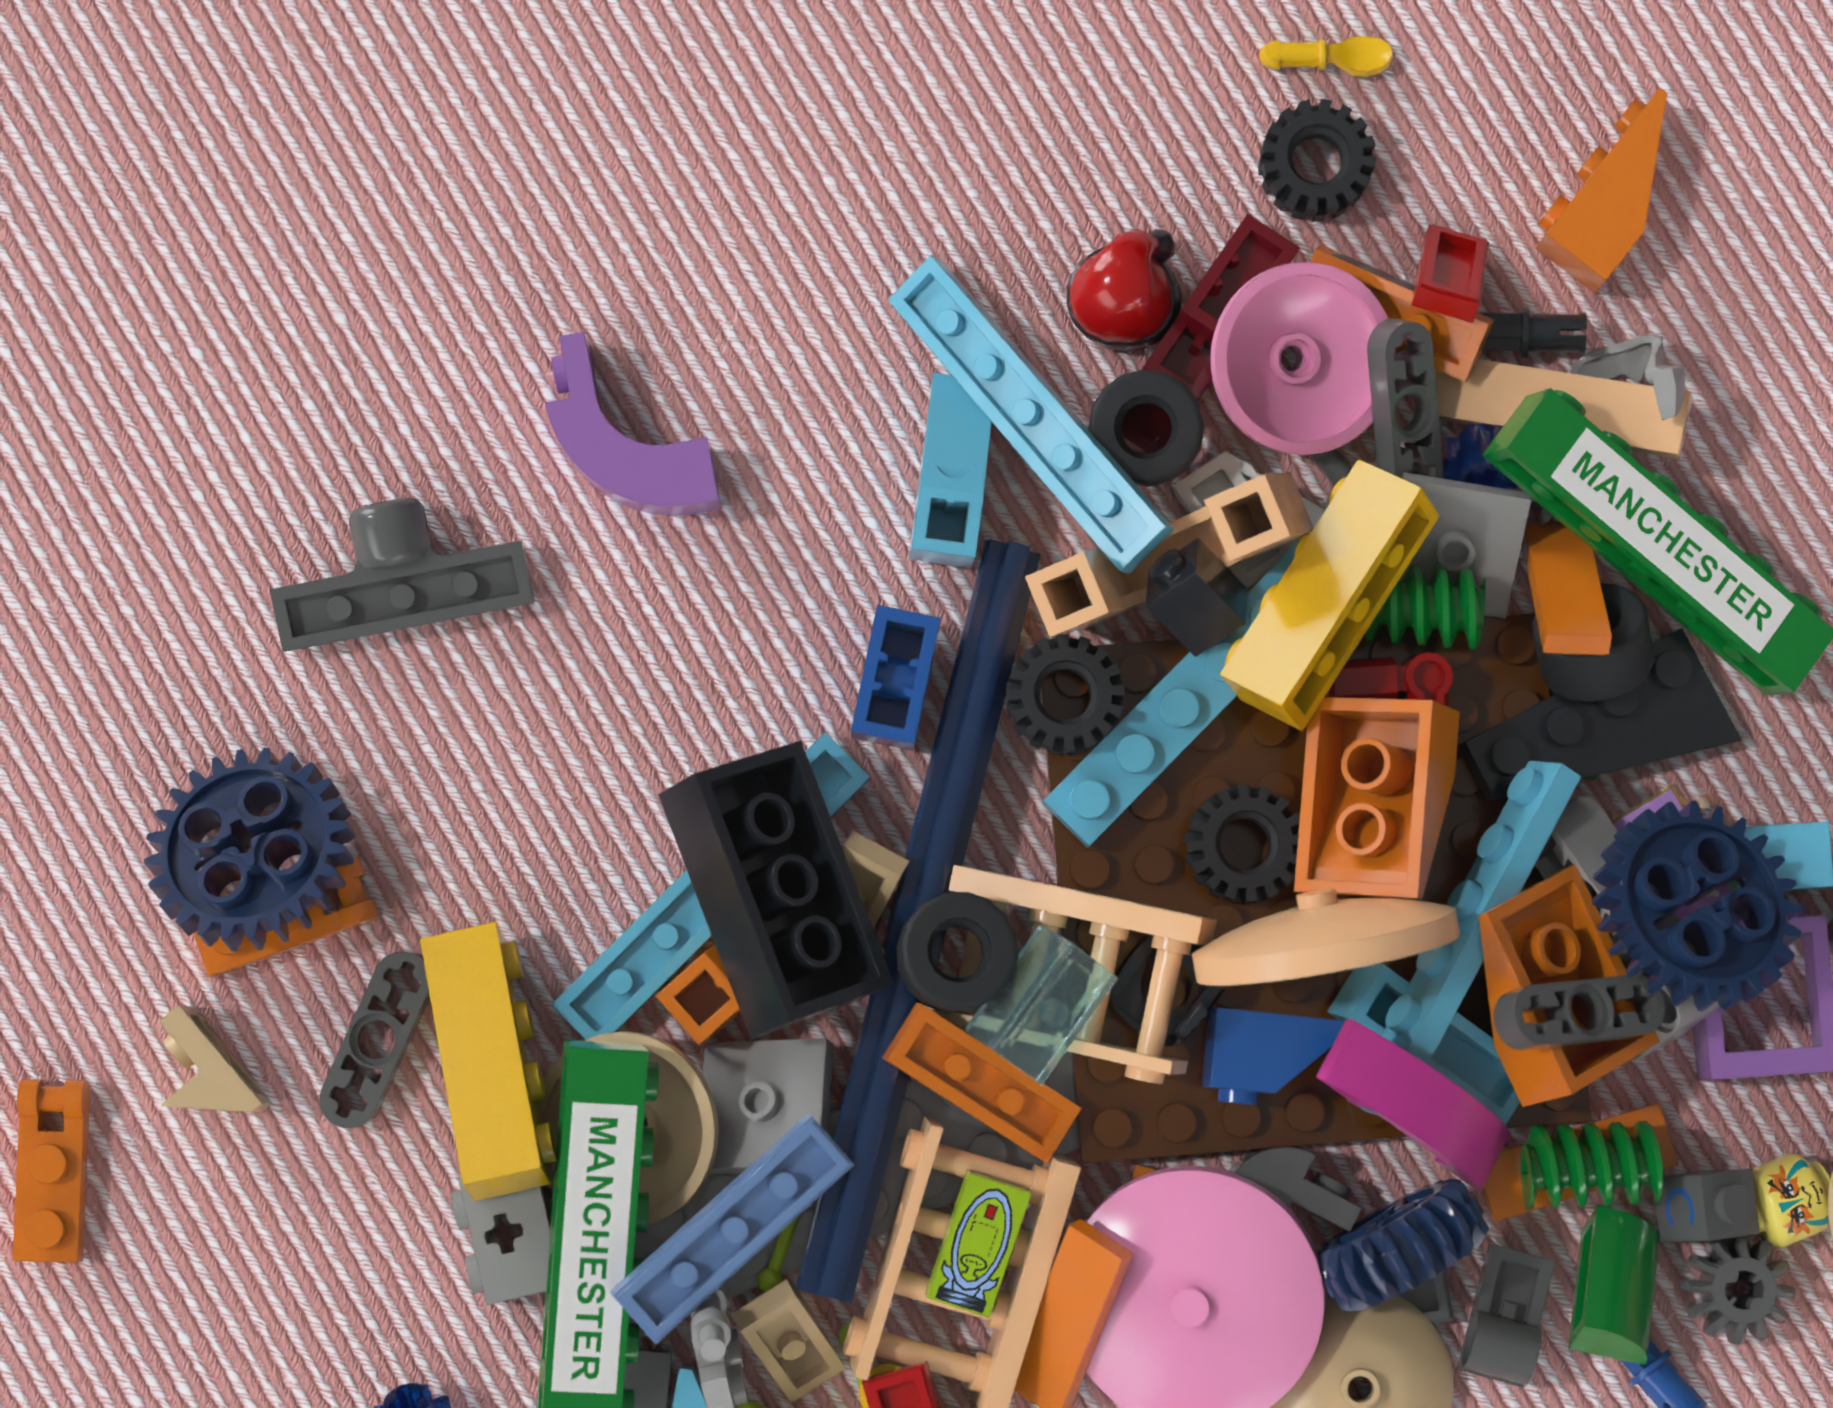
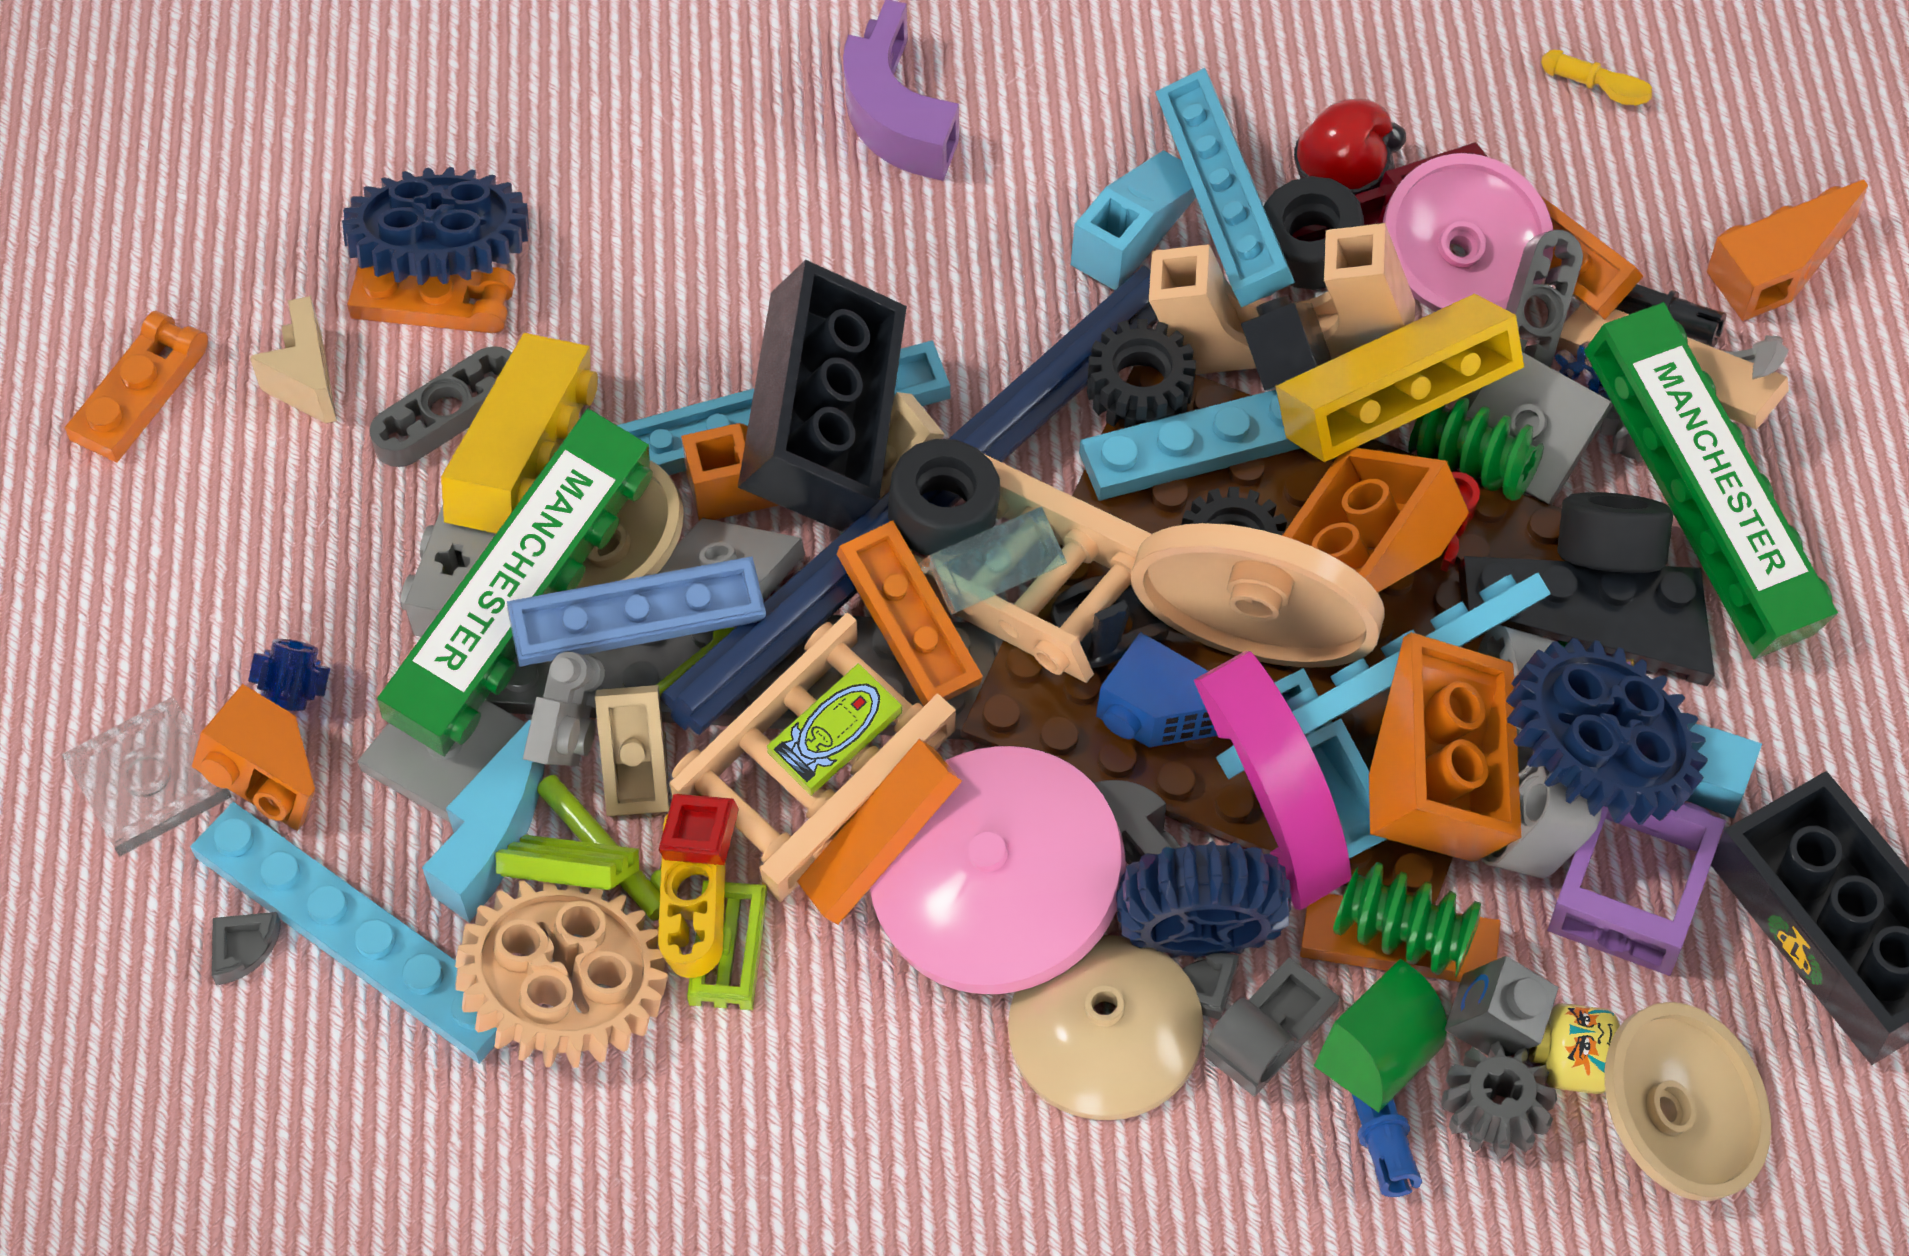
camera: 30 degrees right, 25 degrees down
(399, 581) = (666, 113): dark grey plate -> none
(895, 677) = (1010, 322): blue brick -> none
(1320, 123) = (1556, 111): black tyre -> none
(1450, 273) = (1623, 235): red tile -> none
(1560, 1026) = (1403, 722): dark grey beam -> none
(1565, 591) = (1607, 476): orange tile -> none

